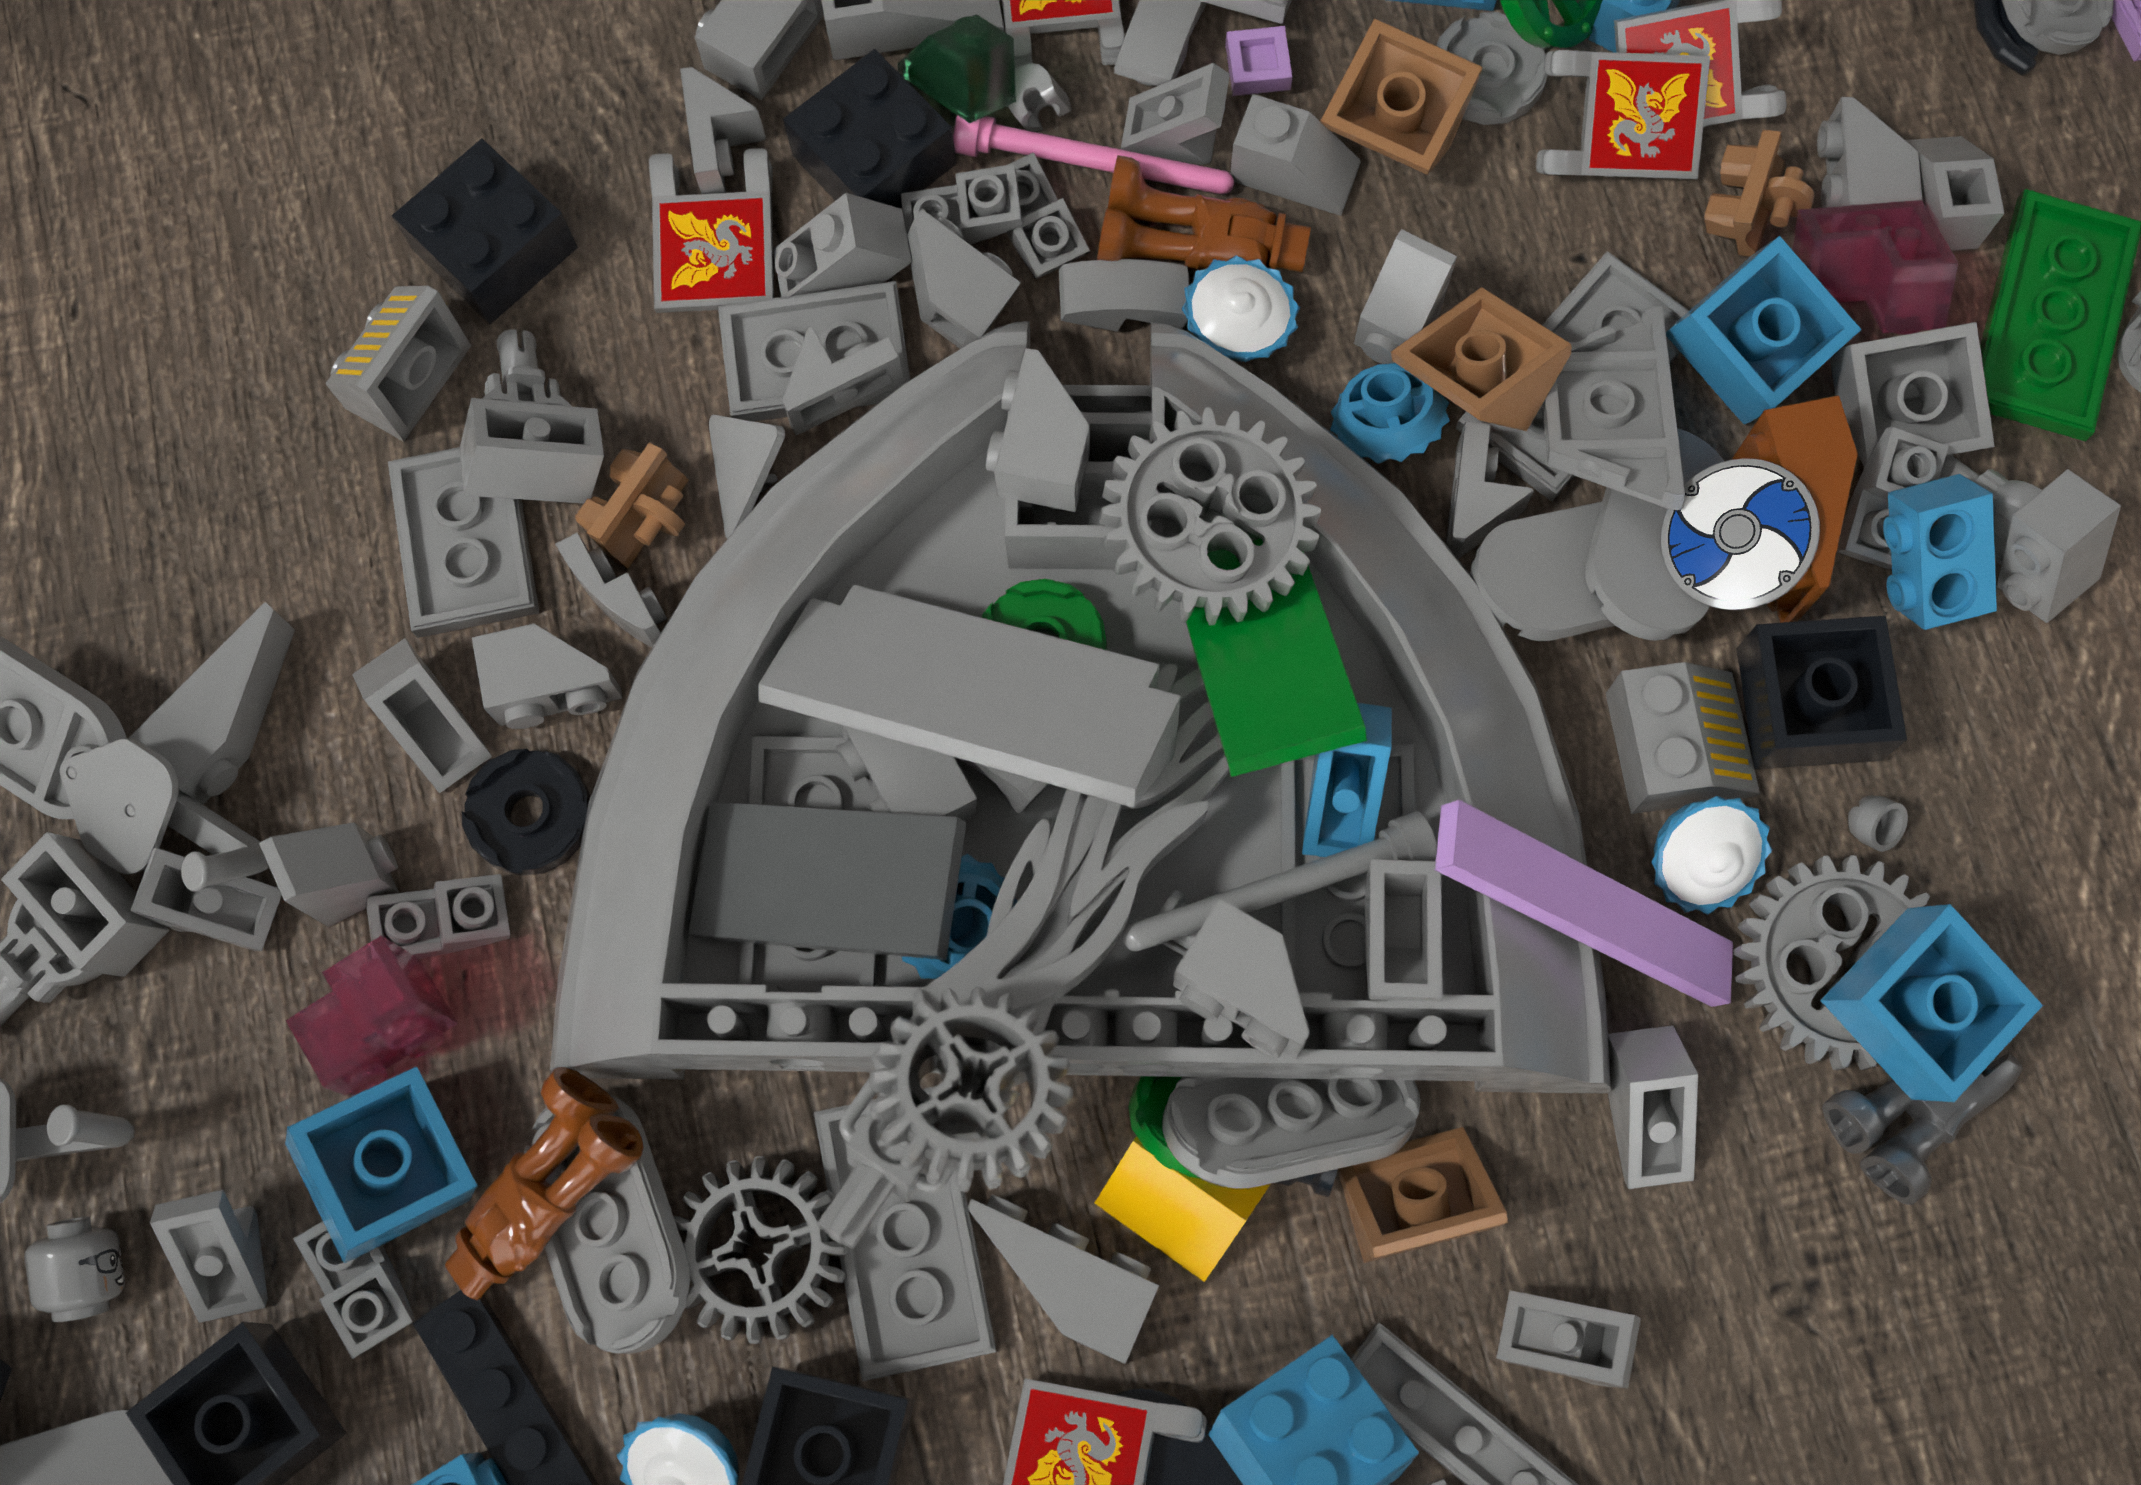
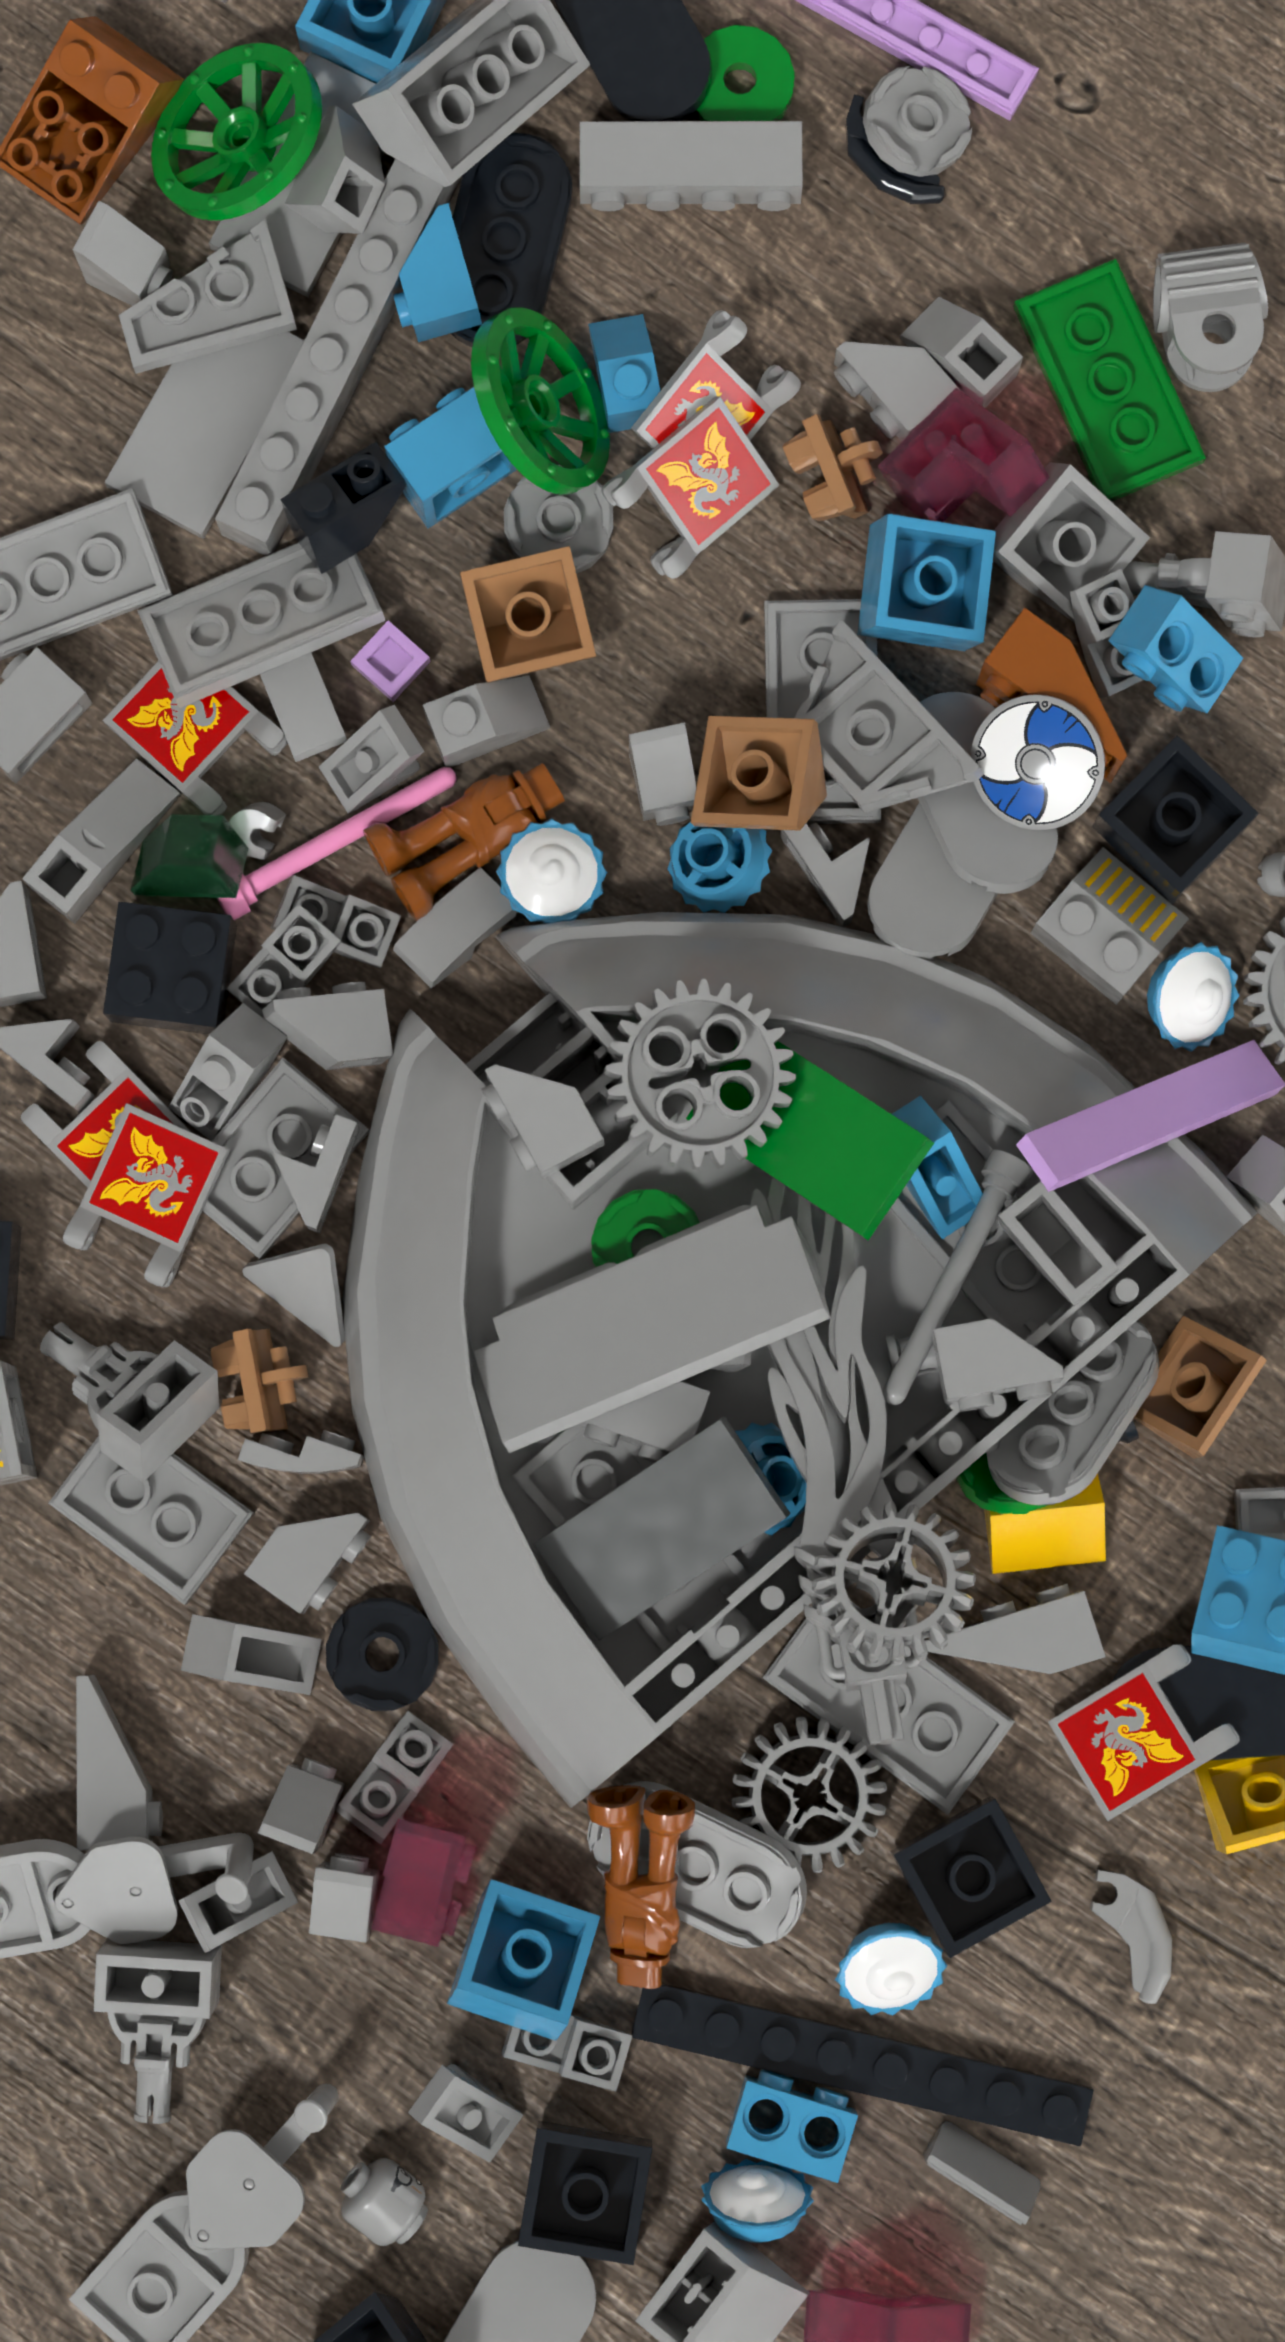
camera: 45 degrees left, 10 degrees up
(286, 970) = (344, 1898): none -> light grey slope
(699, 290) = (151, 1183): none -> flag

